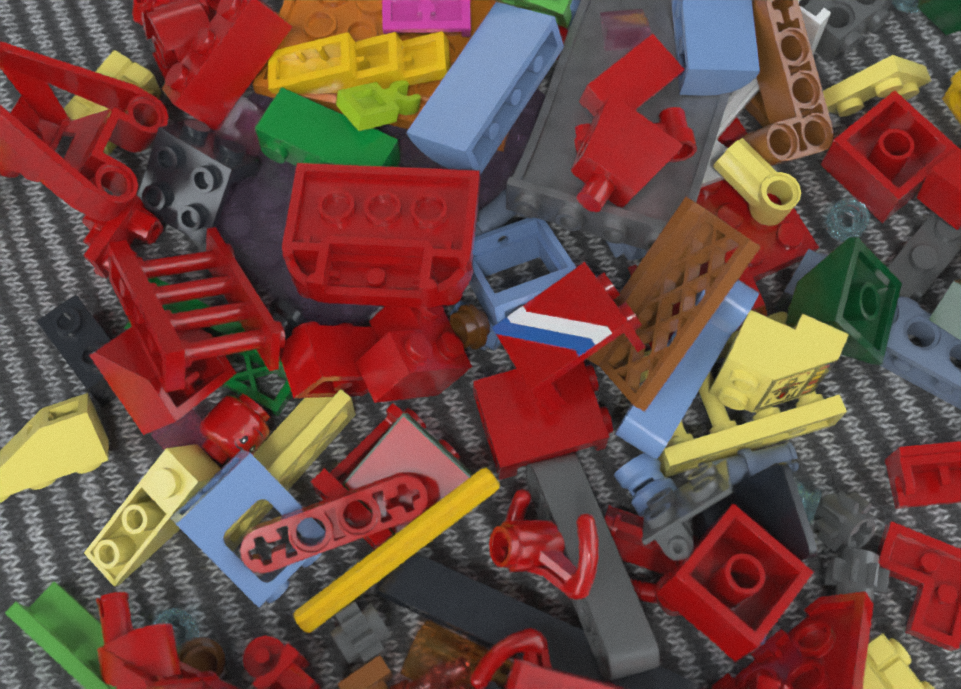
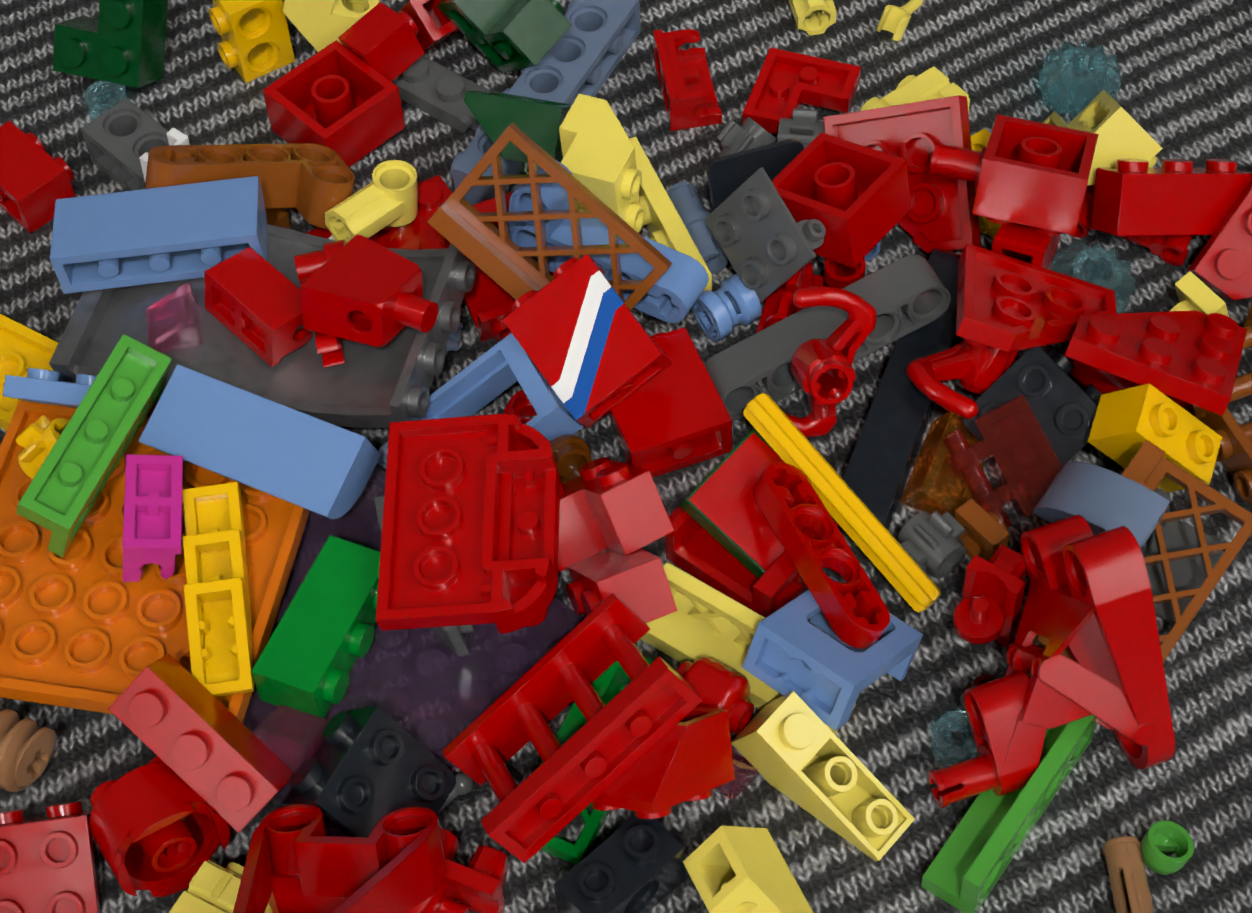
camera: 90 degrees left, 15 degrees down
(372, 106) = (285, 555): lime plate -> none
(853, 208) = (405, 143): clear light blue bush -> none
(879, 81) = (243, 104): light yellow plate -> none

